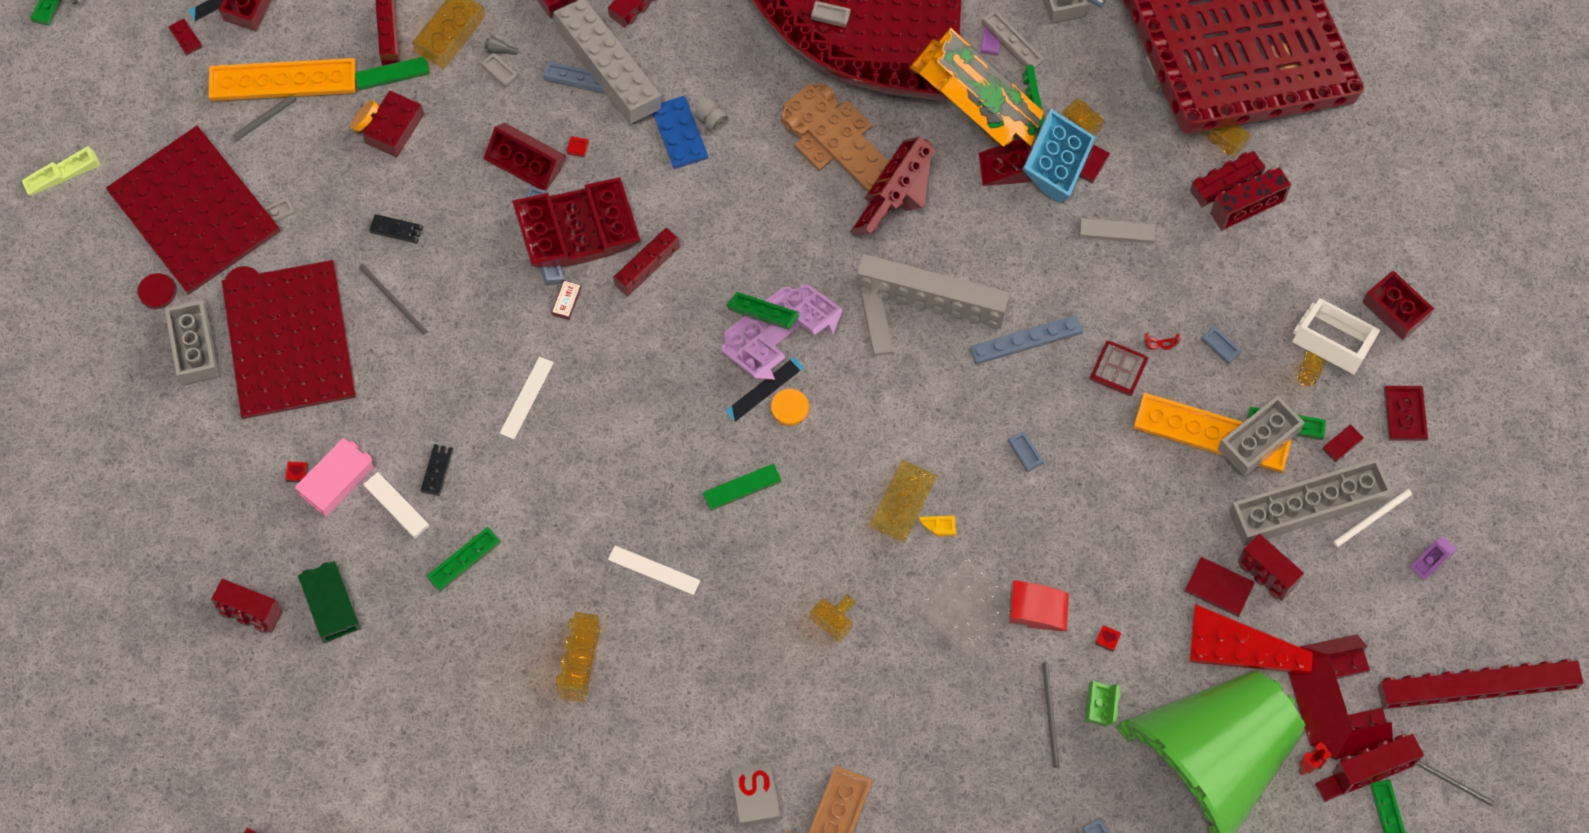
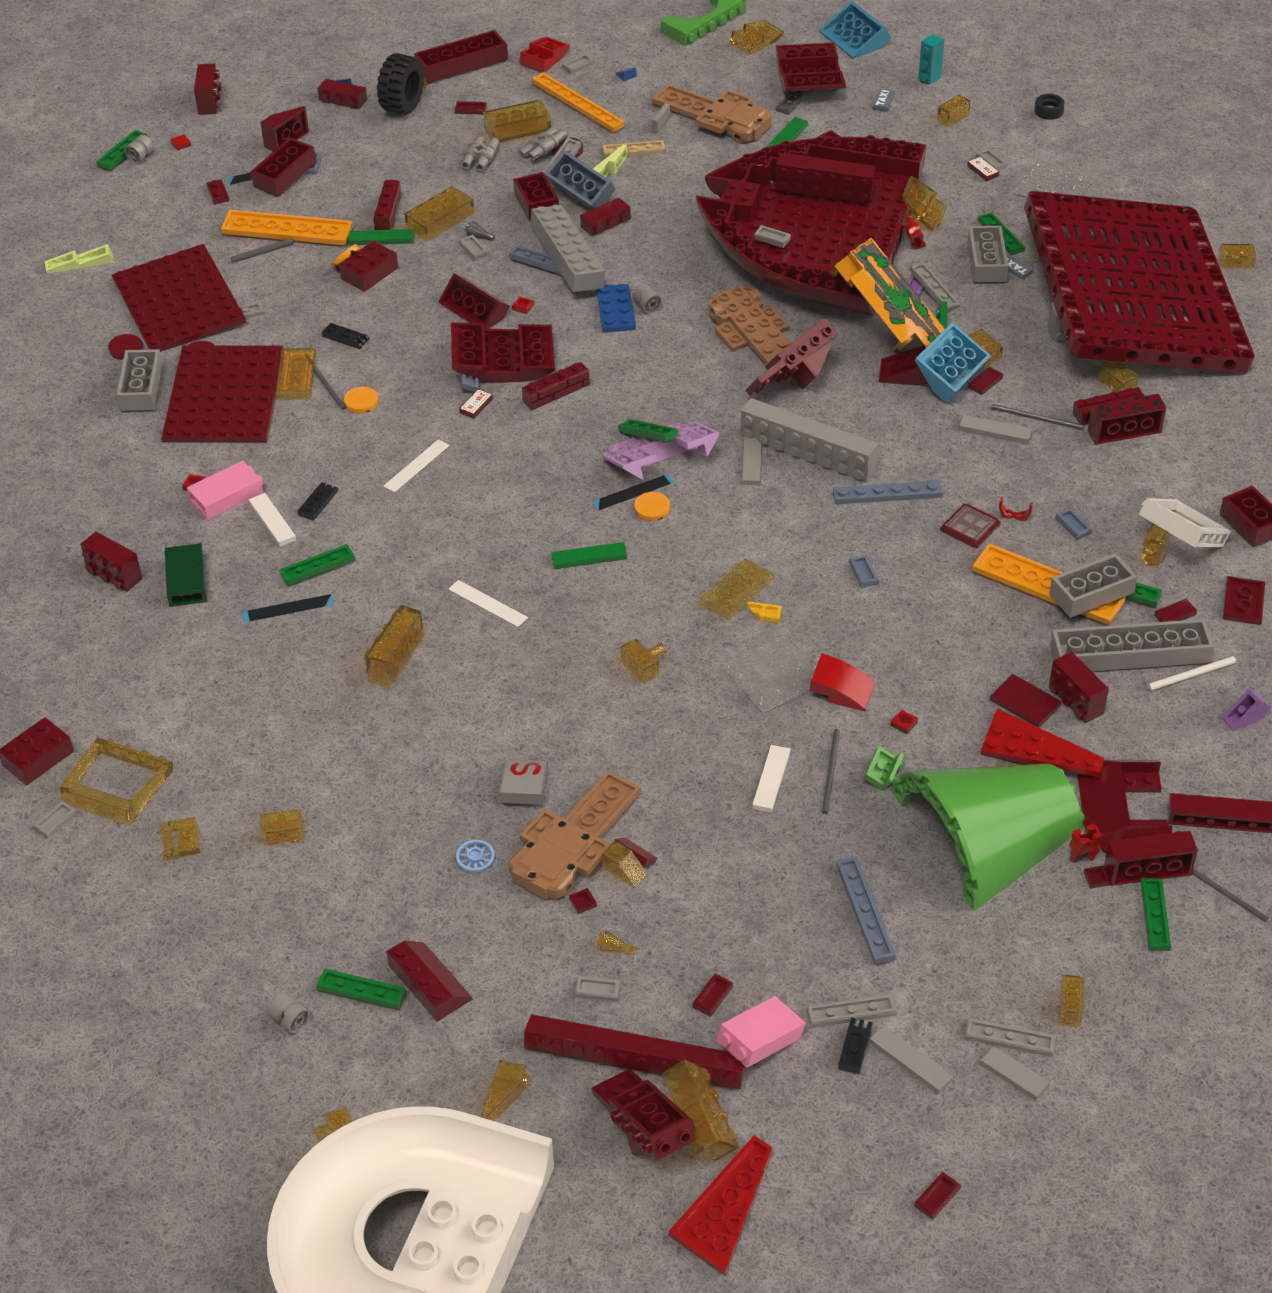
camera: 15 degrees right, 20 degrees down
(359, 295) = (295, 373): none -> clear yellow tile
(441, 318) = (361, 400): none -> light orange tile
(448, 619) = (288, 608): none -> black sticker
(995, 737) = (771, 779): none -> white tile
(1156, 204) = (1038, 417): none -> dark grey axle

